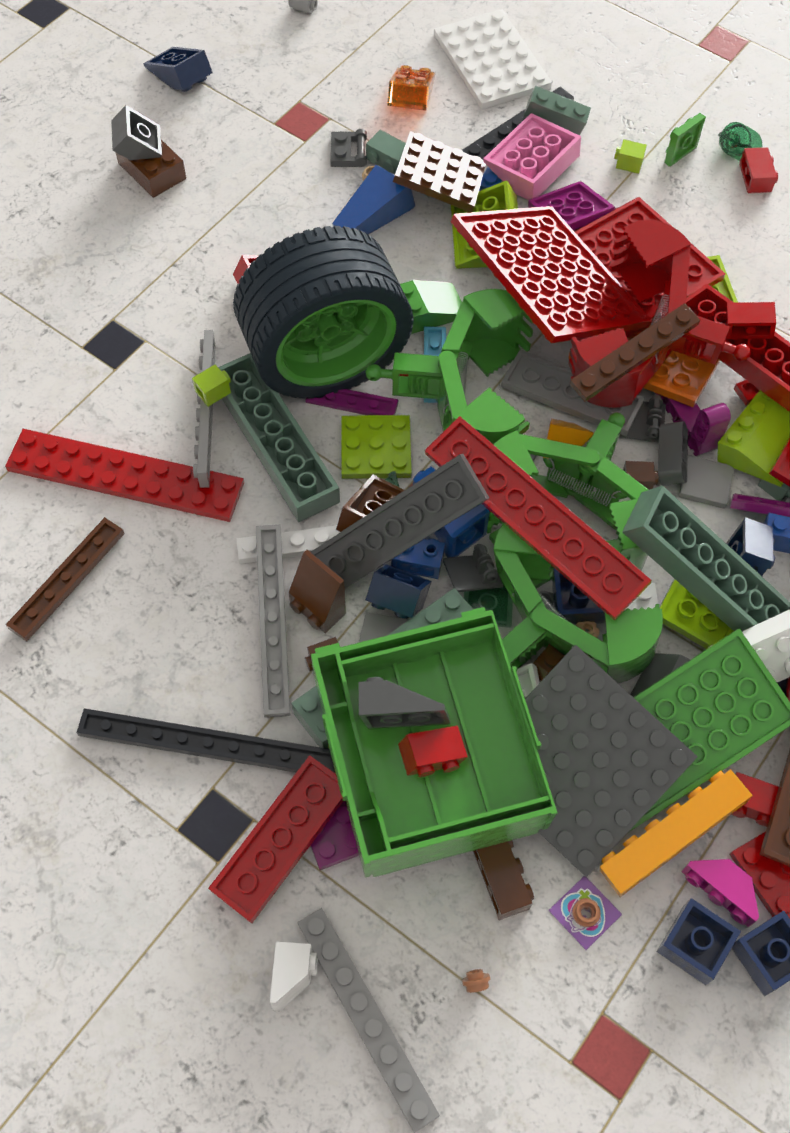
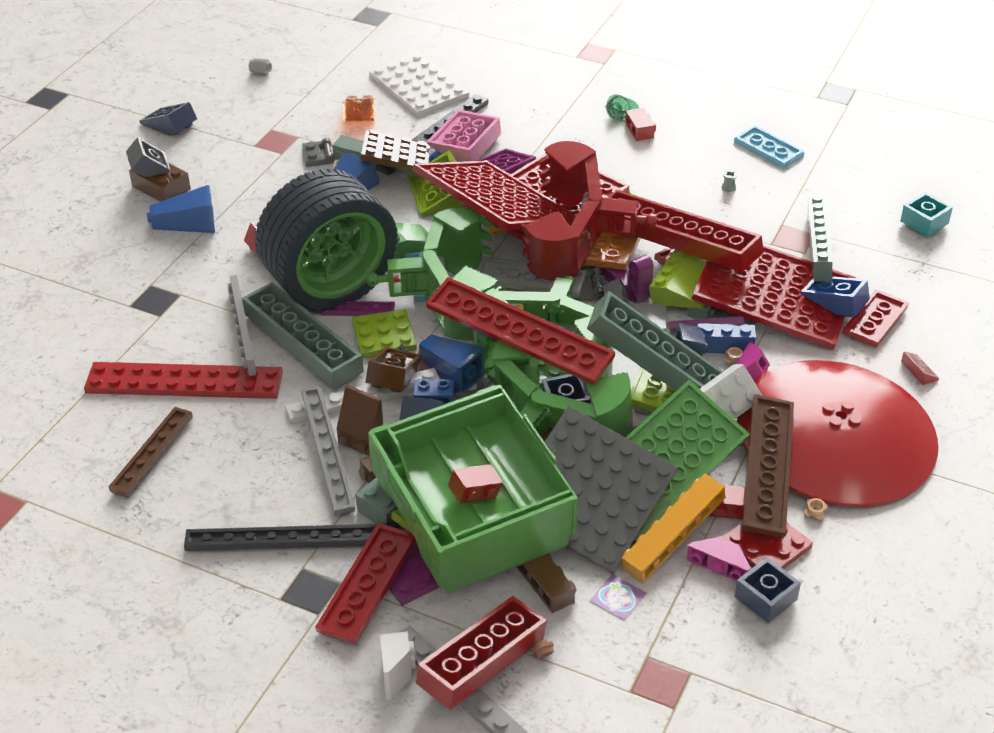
camera: 10 degrees left, 20 degrees down
(171, 219) = (184, 212): none -> blue slope
(212, 385) = (245, 303): lime brick -> none
(391, 705) = (441, 453): dark grey slope -> none
(397, 982) = (480, 652): none -> red brick
(403, 521) = (422, 353): dark grey plate -> none
(558, 110) = (477, 104): sand green brick -> none
(590, 905) = (619, 593): nougat plate -> none
(630, 156) = (540, 128): lime brick -> none
(634, 352) = (570, 224): reddish brown plate -> none
(684, 139) = (579, 111): bright green plate -> none
(698, 941) = (708, 592): dark blue brick -> none
(751, 320) = (653, 201): red brick -> none

